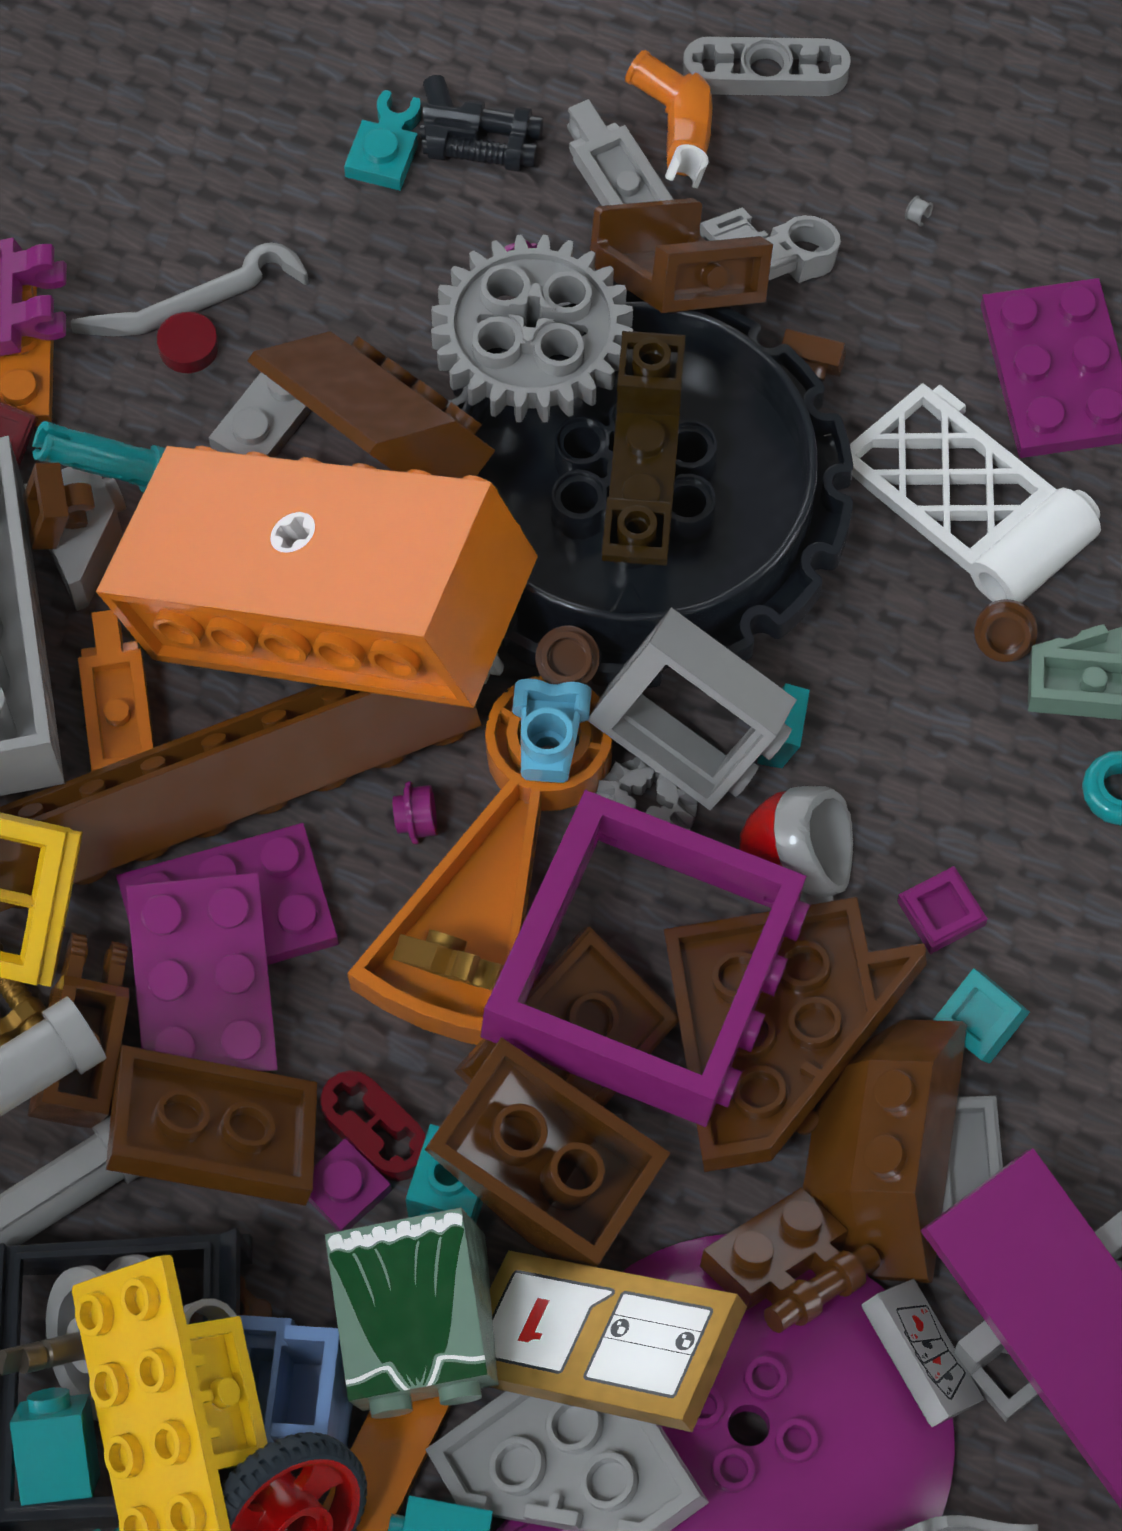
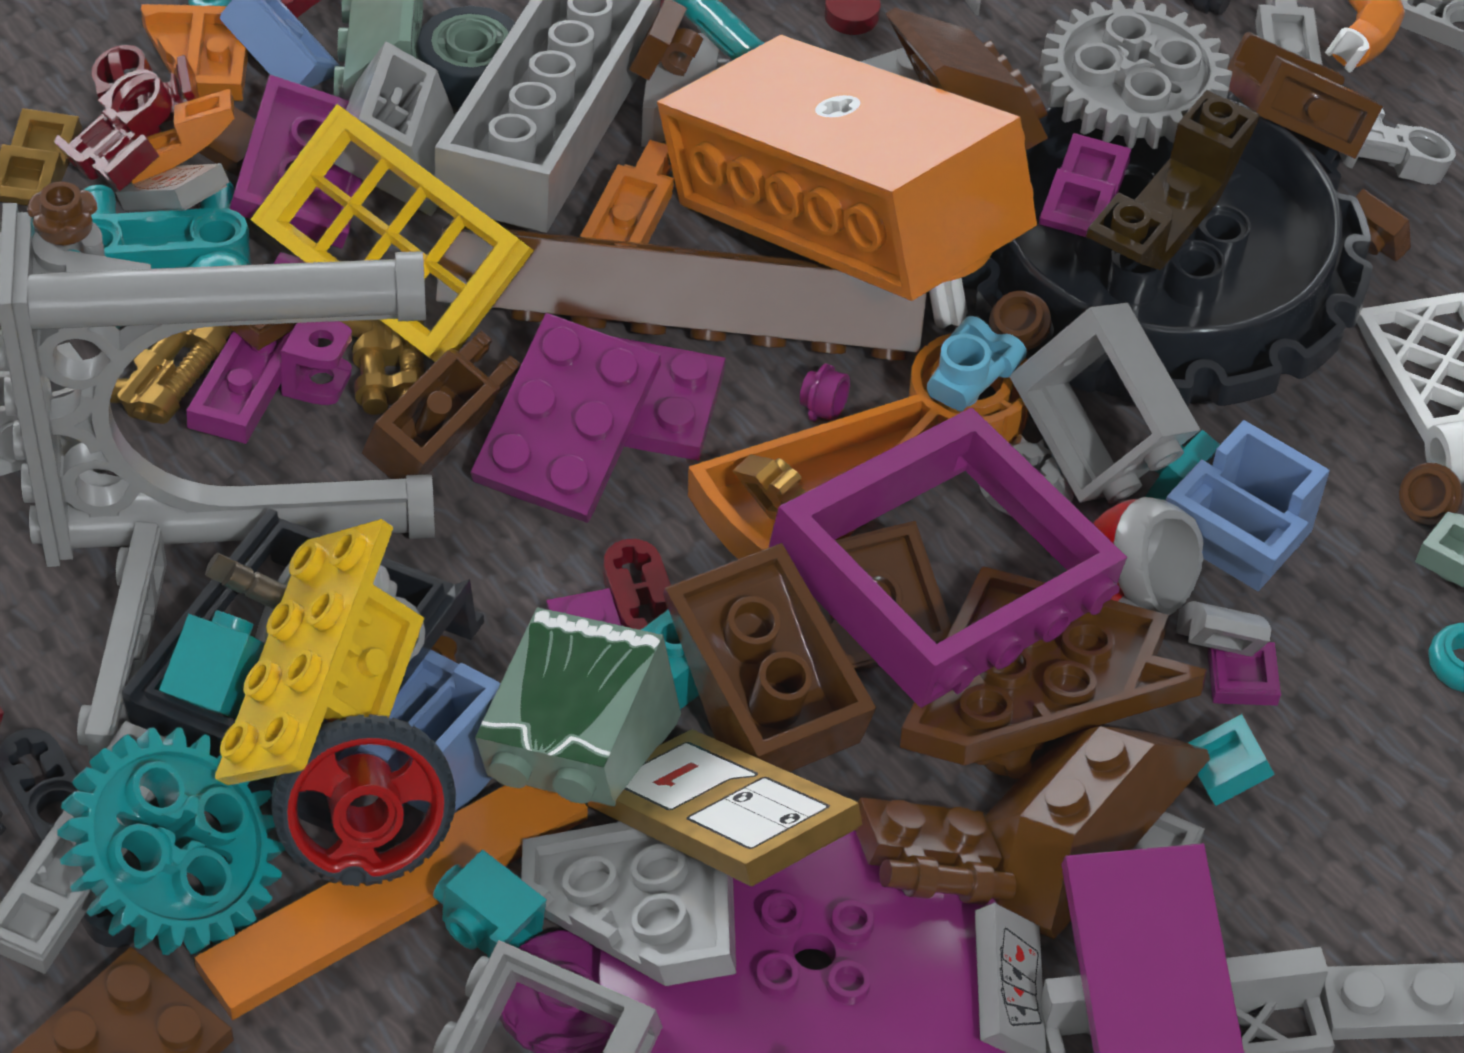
camera: 25 degrees right, 15 degrees down
(212, 1126) = (503, 515): reddish brown plate -> none
(556, 485) = (1084, 184): none -> magenta slope
(868, 739) = (1252, 503): none -> medium blue plate
(914, 886) = (1223, 628): none -> light grey slope

